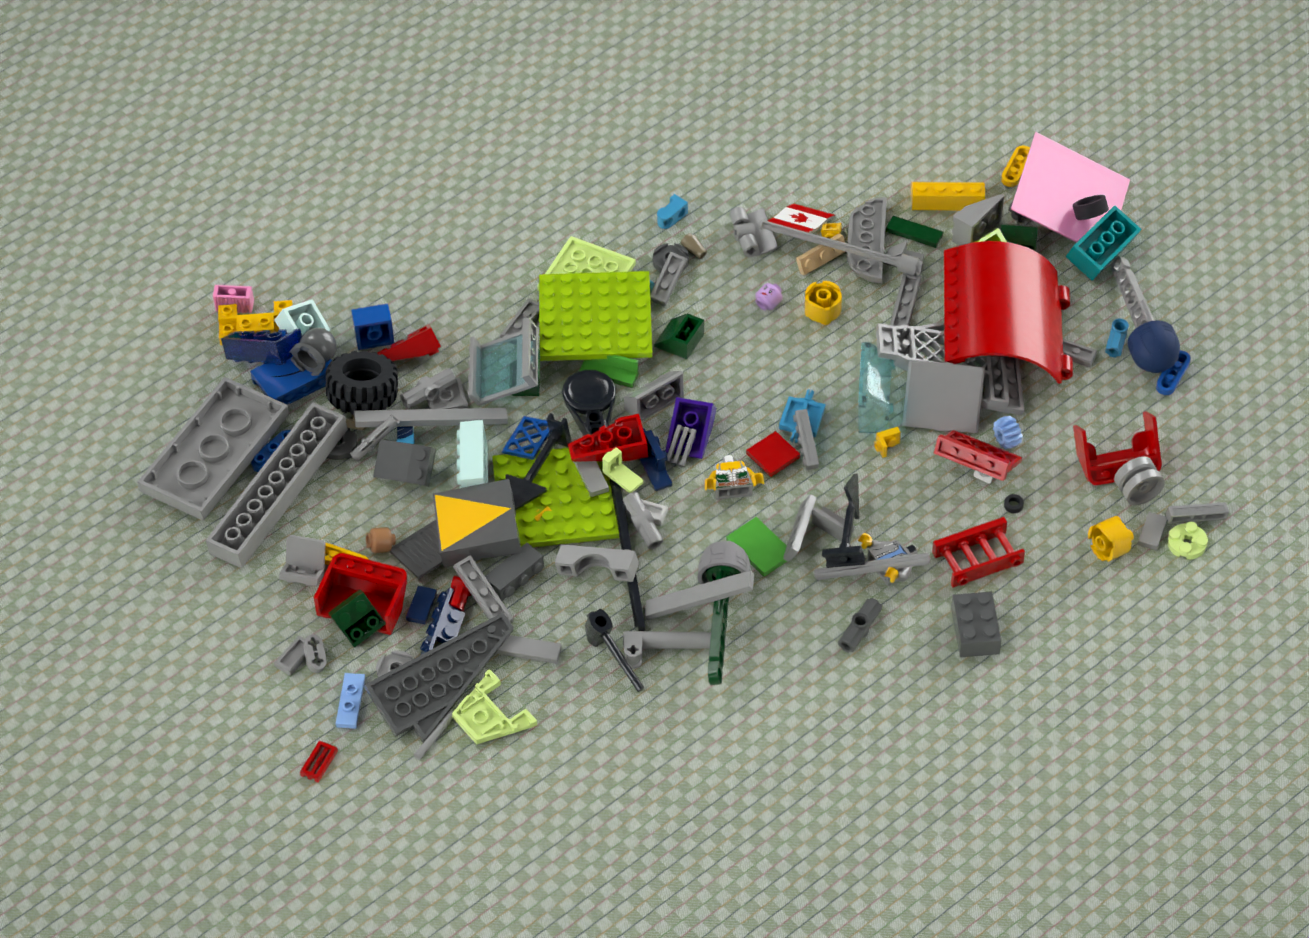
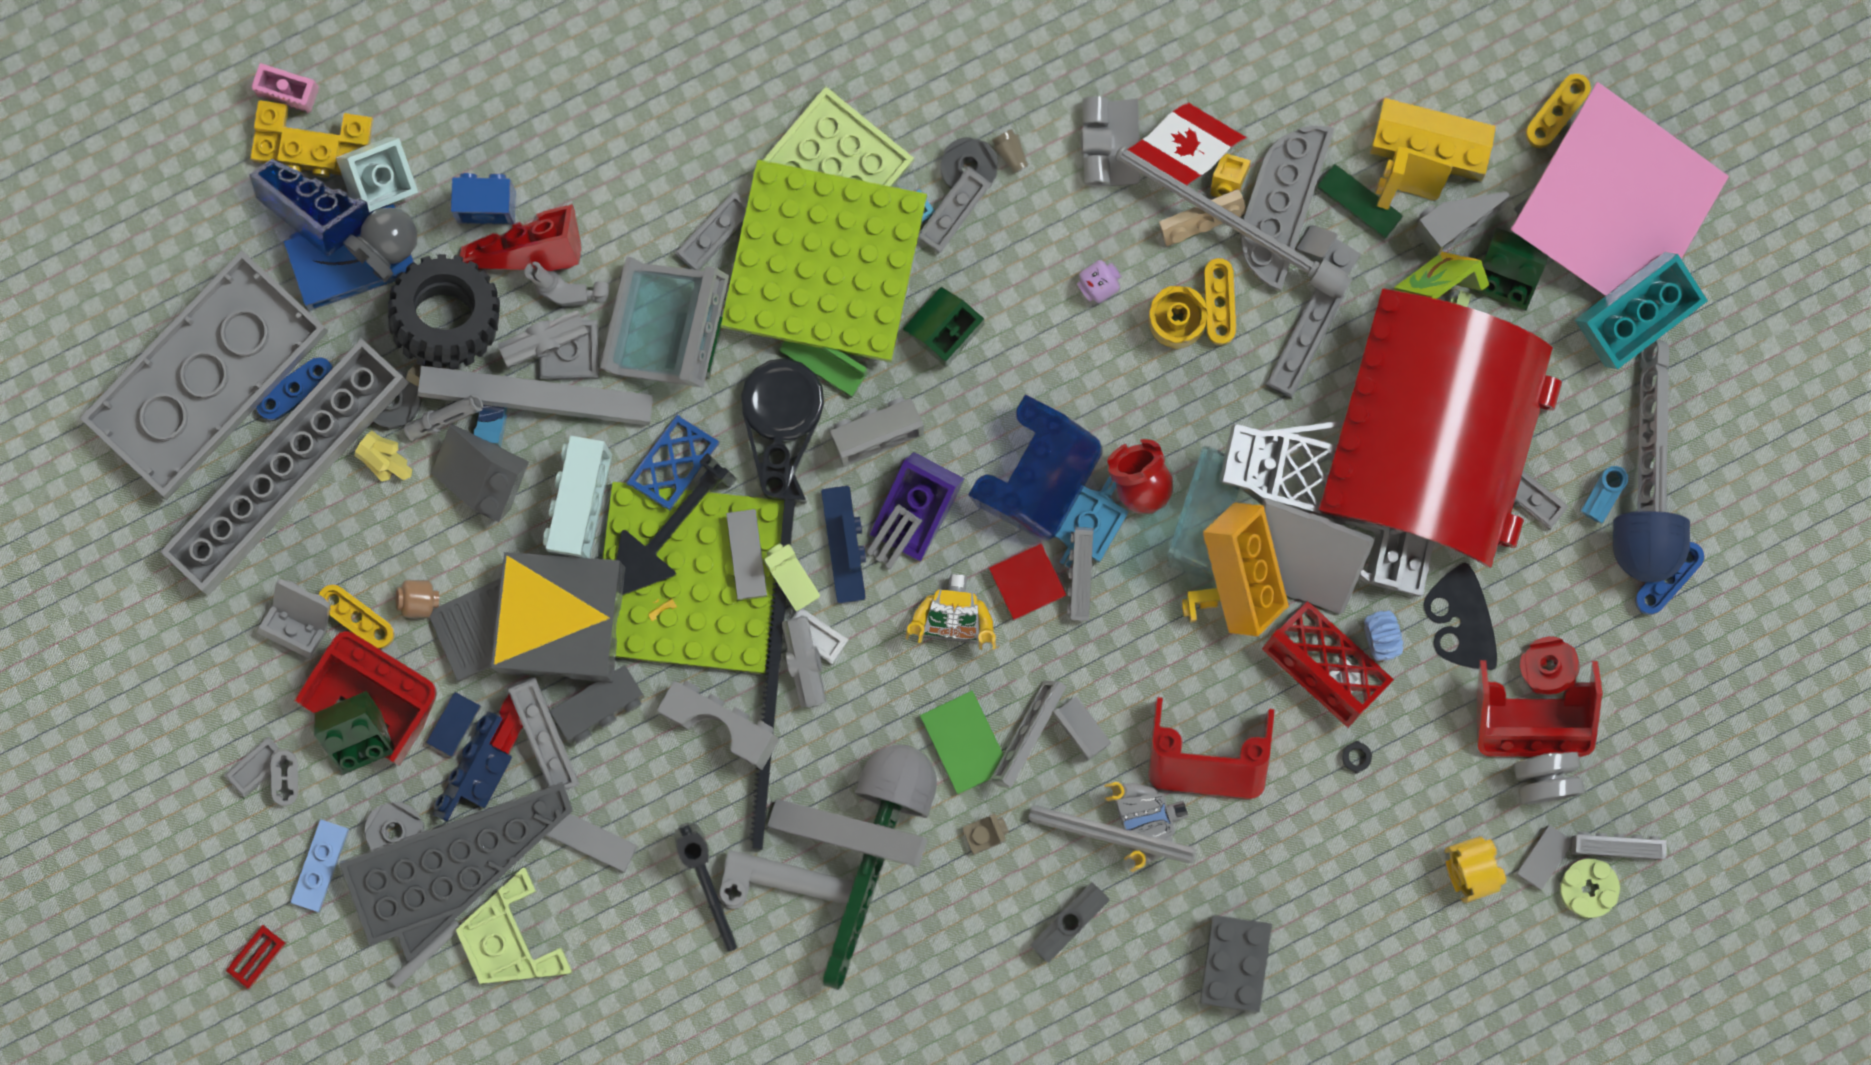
camera: 15 degrees right, 30 degrees up
(333, 468) = (381, 457): none -> light yellow rock
(432, 367) = (557, 290): none -> light grey arm
(624, 434) = (791, 517): red wedge -> none
(672, 212) = (995, 75): dark azure leg -> none
(767, 393) = (1047, 475): none -> clear blue windscreen
(790, 590) = (985, 833): none -> dark tan bracket
(829, 382) = (1141, 476): none -> red tile
(846, 554) = (1117, 707): black piece -> none
(851, 303) = (1223, 289): none -> yellow plate
(909, 404) = (1245, 569): none -> light orange brick
(920, 524) = (1208, 774): none -> red windscreen
(941, 205) = (1414, 174): none -> yellow bracket
(972, 536) = (1259, 815): red fence -> none
(1054, 413) = (1467, 603): none -> black piece
(1090, 207) = (1639, 261): black tyre -> none
(1125, 429) = (1553, 681): none -> red plate

